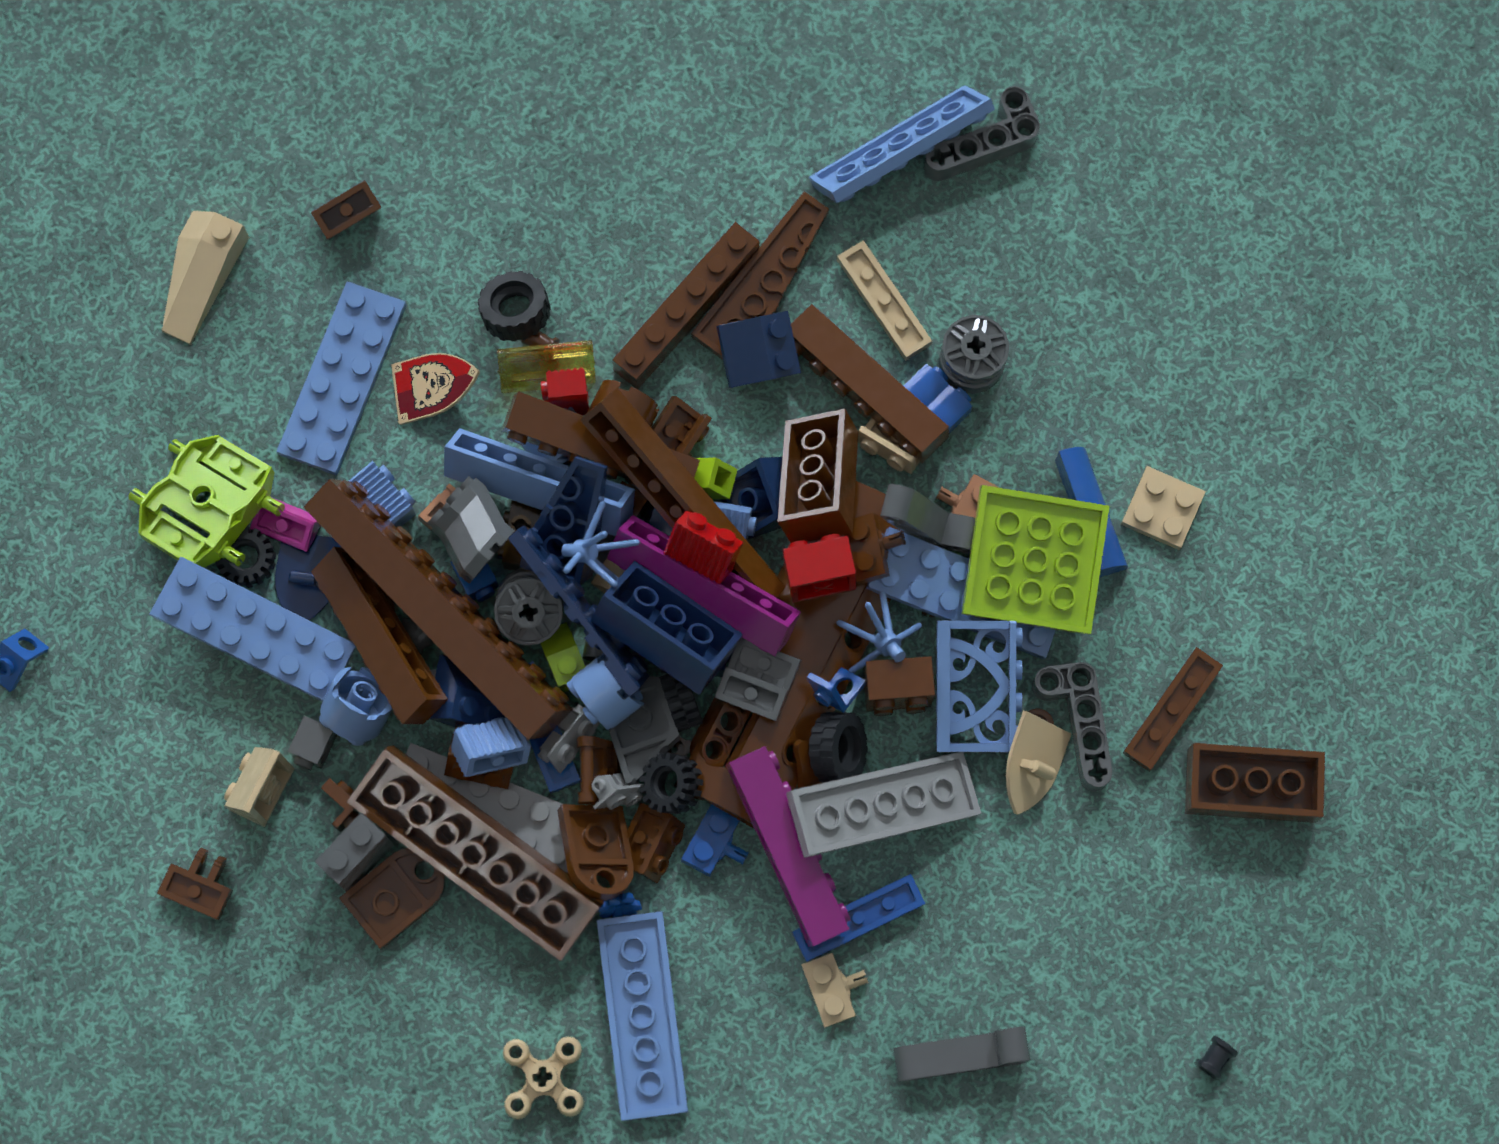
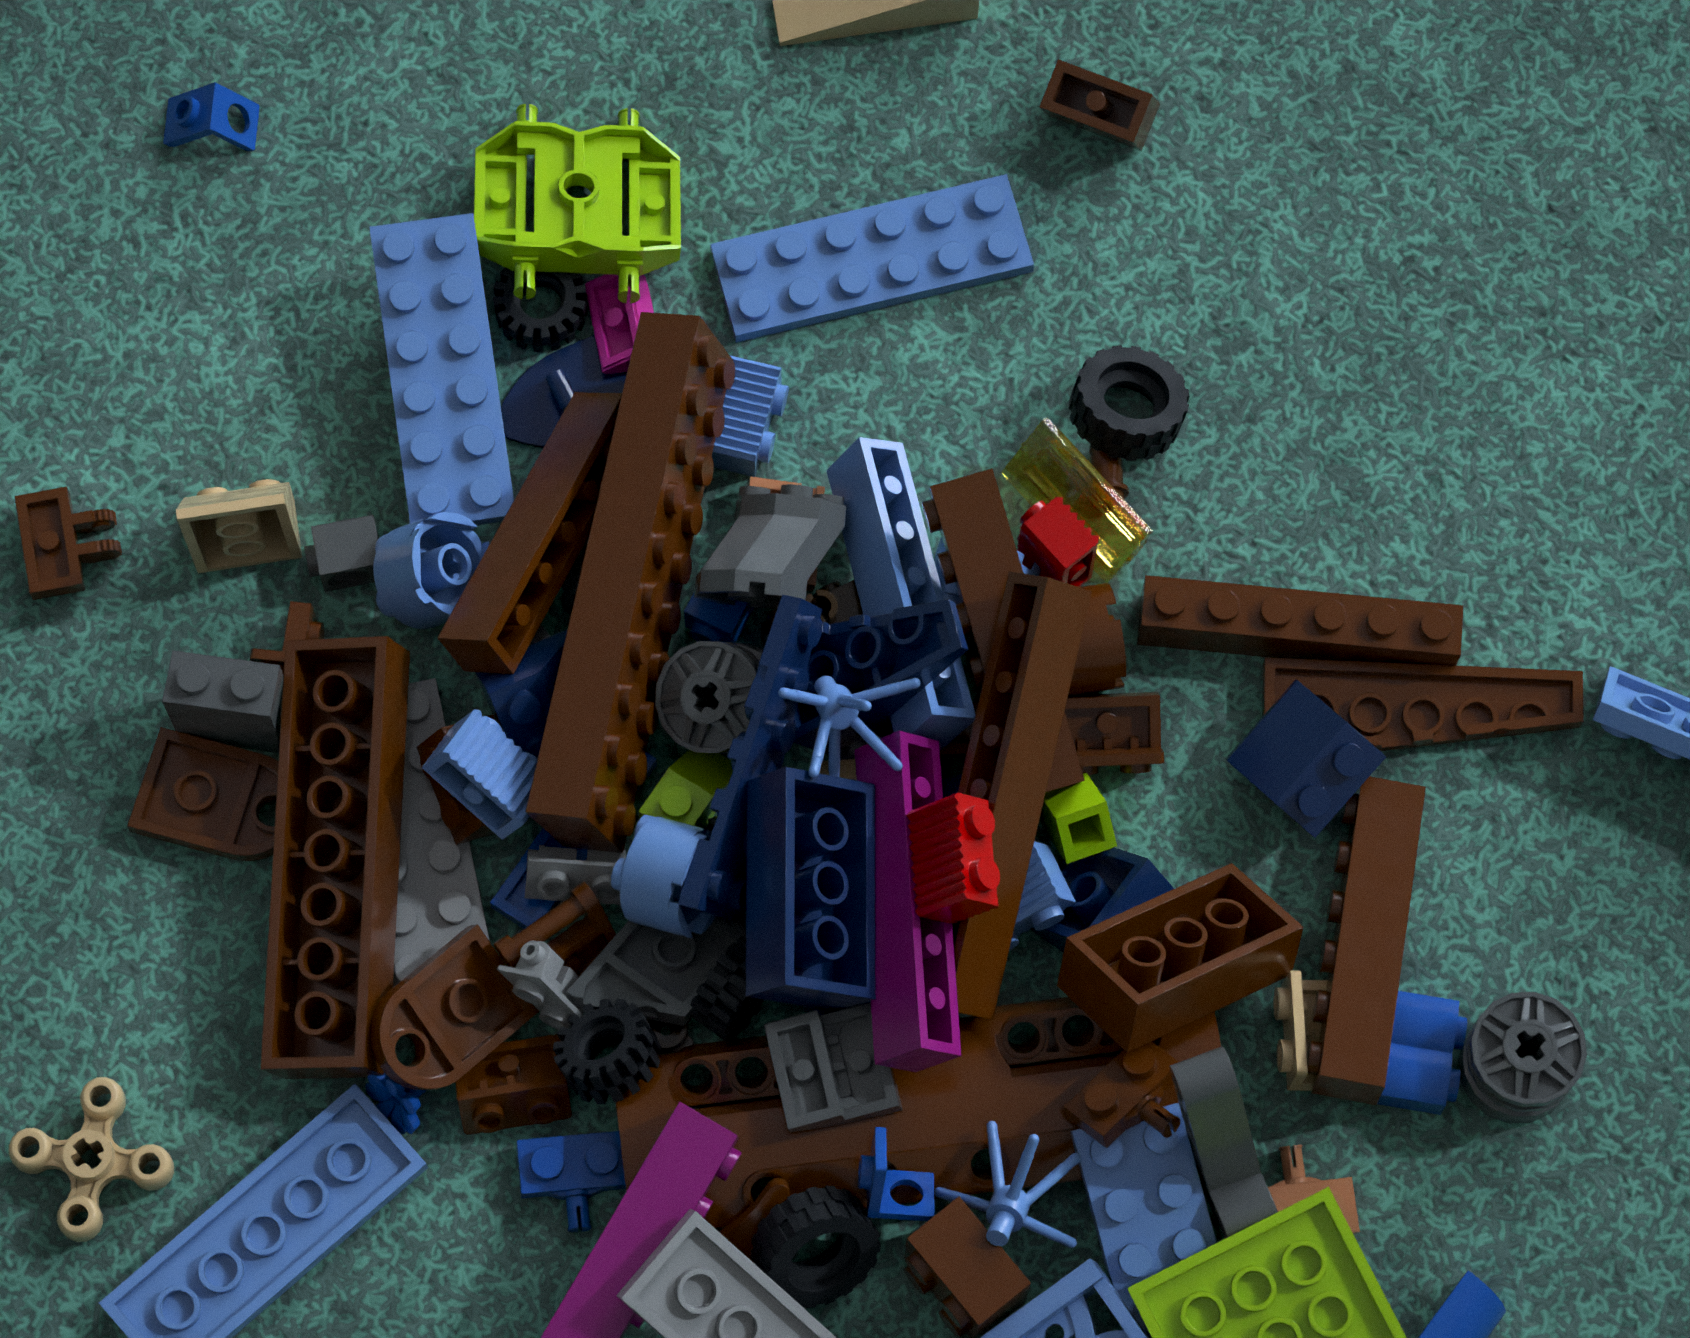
camera: 55 degrees right, 5 degrees down
(430, 385) = (941, 372): shield -> none
(819, 568) = (1043, 1039): red brick -> none
(884, 300) = (1510, 886): tan plate -> none

